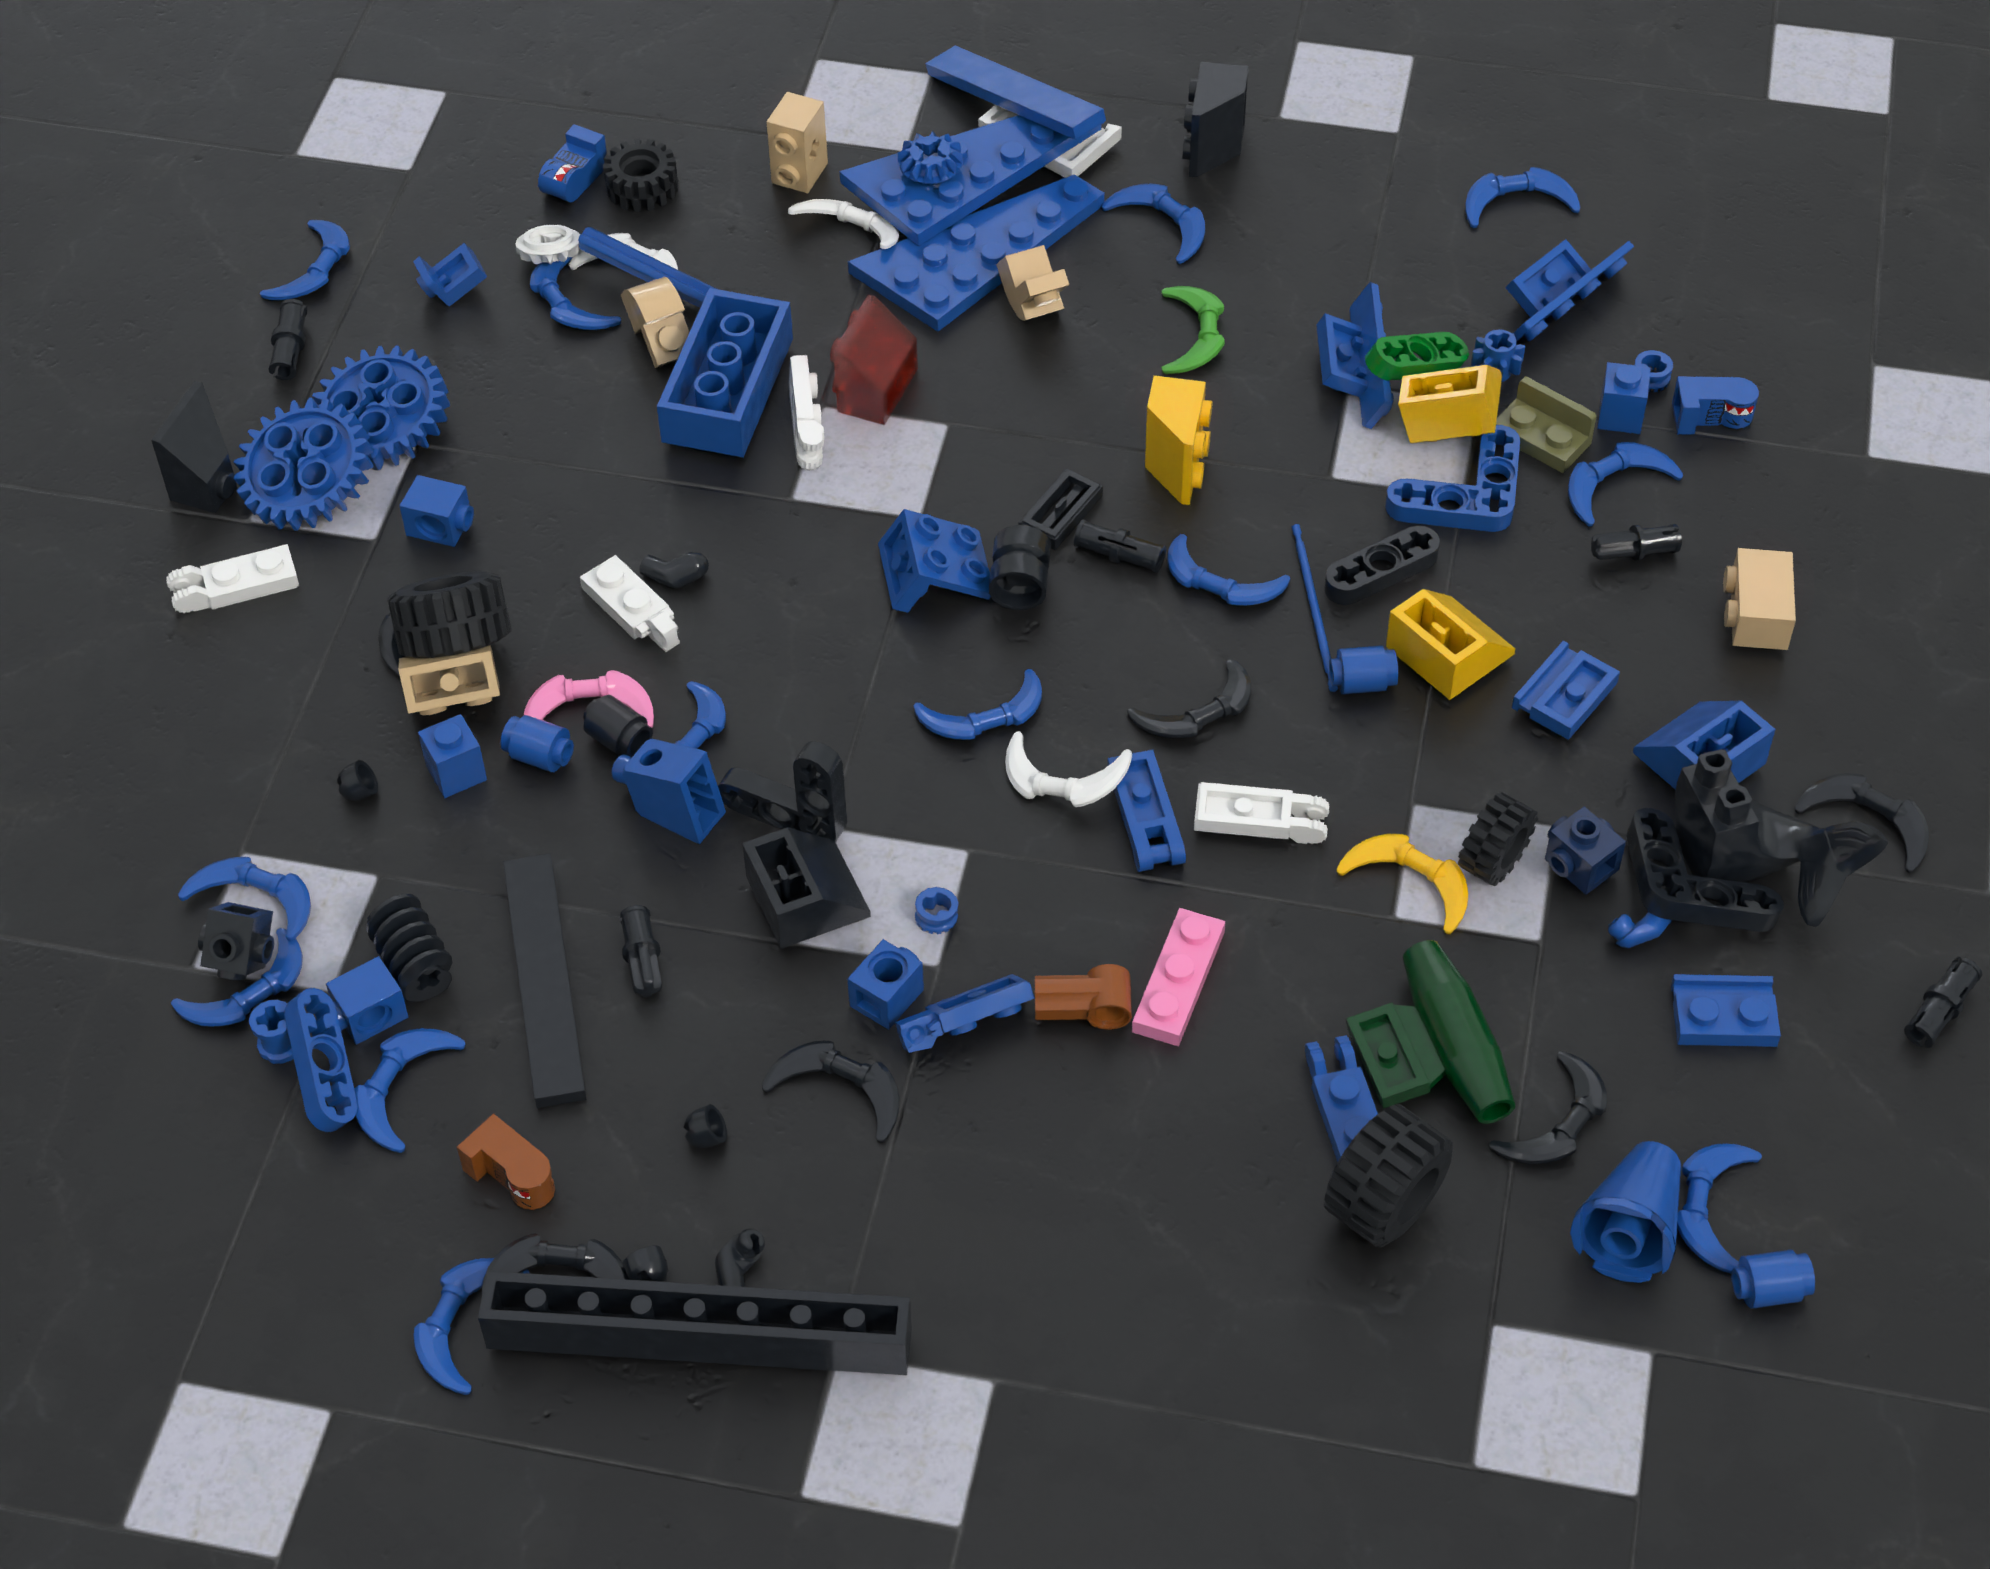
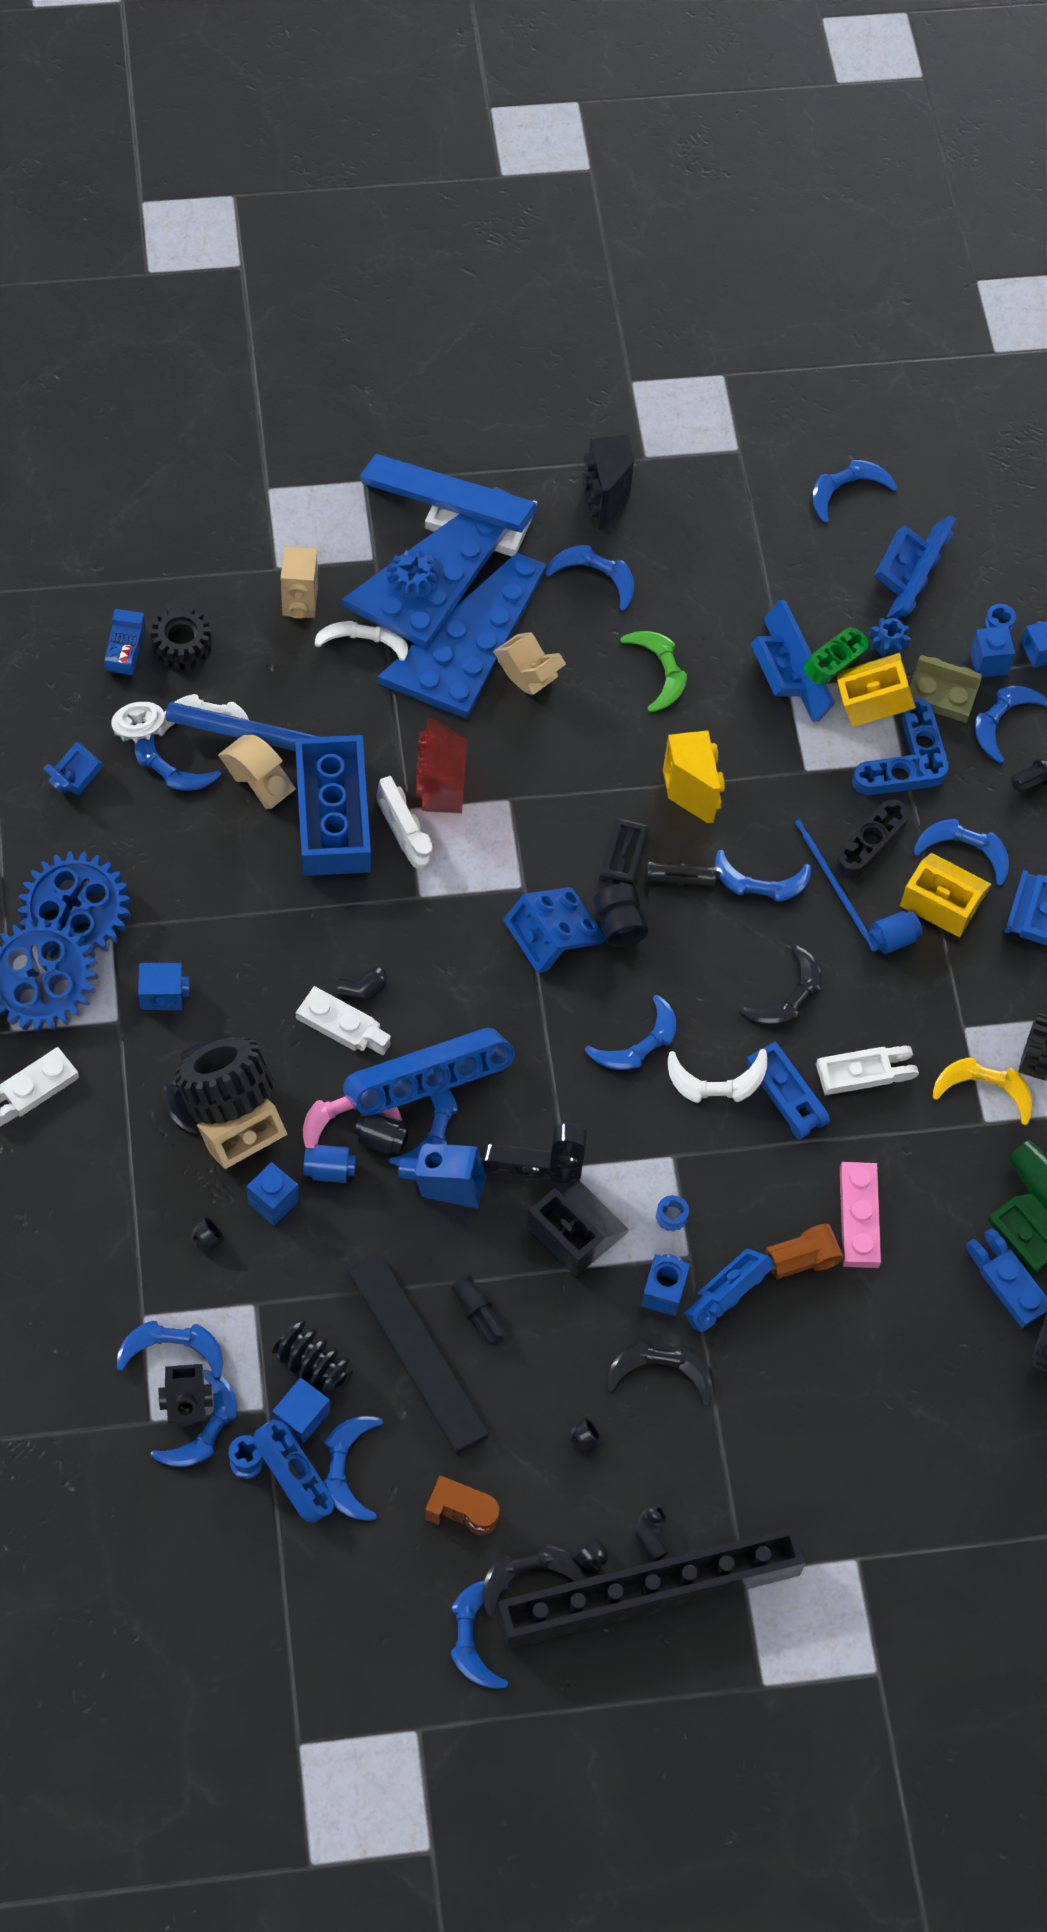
camera: 25 degrees left, 10 degrees up
(680, 660) = (449, 1066): none -> blue beam
(1531, 605) = (951, 830): none -> blue piece

